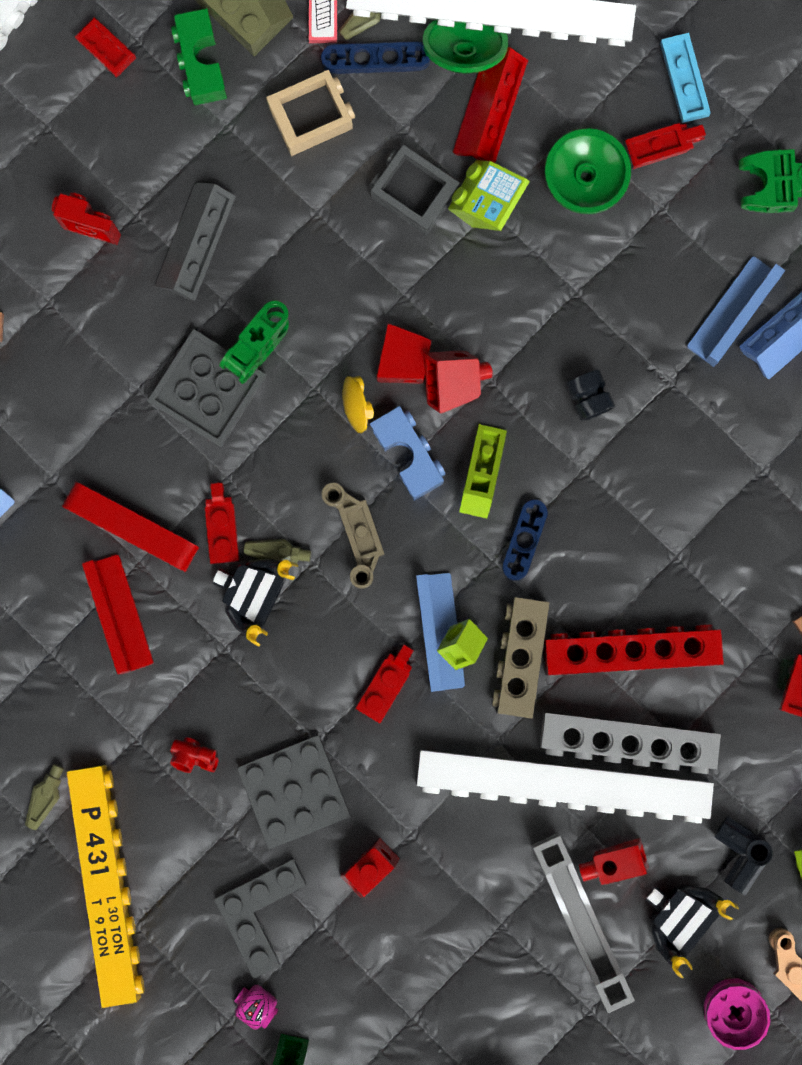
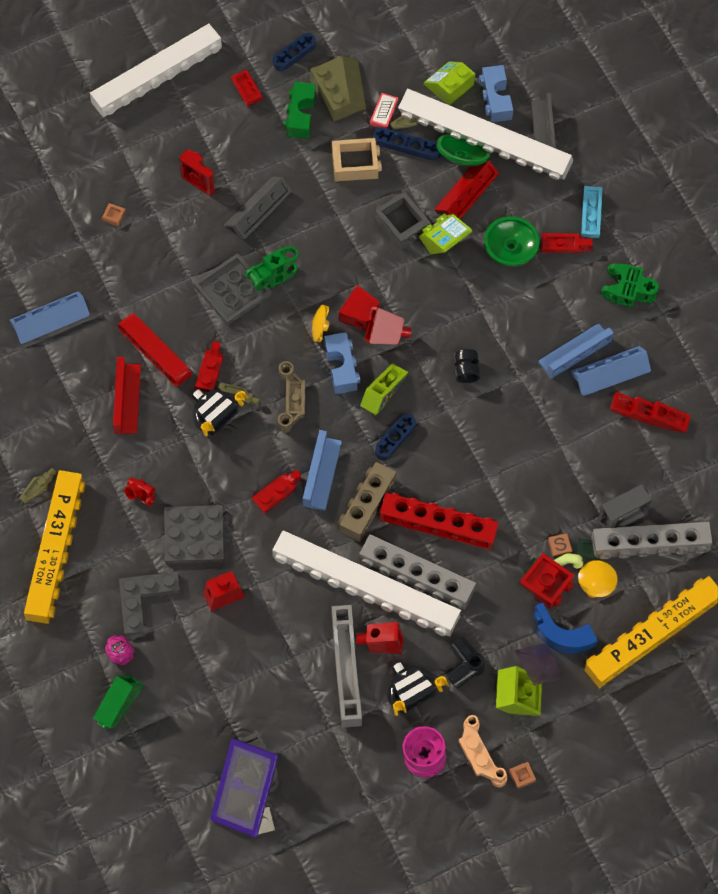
camera: 15 degrees right, 20 degrees down
(462, 644) = (332, 478): lime brick -> none

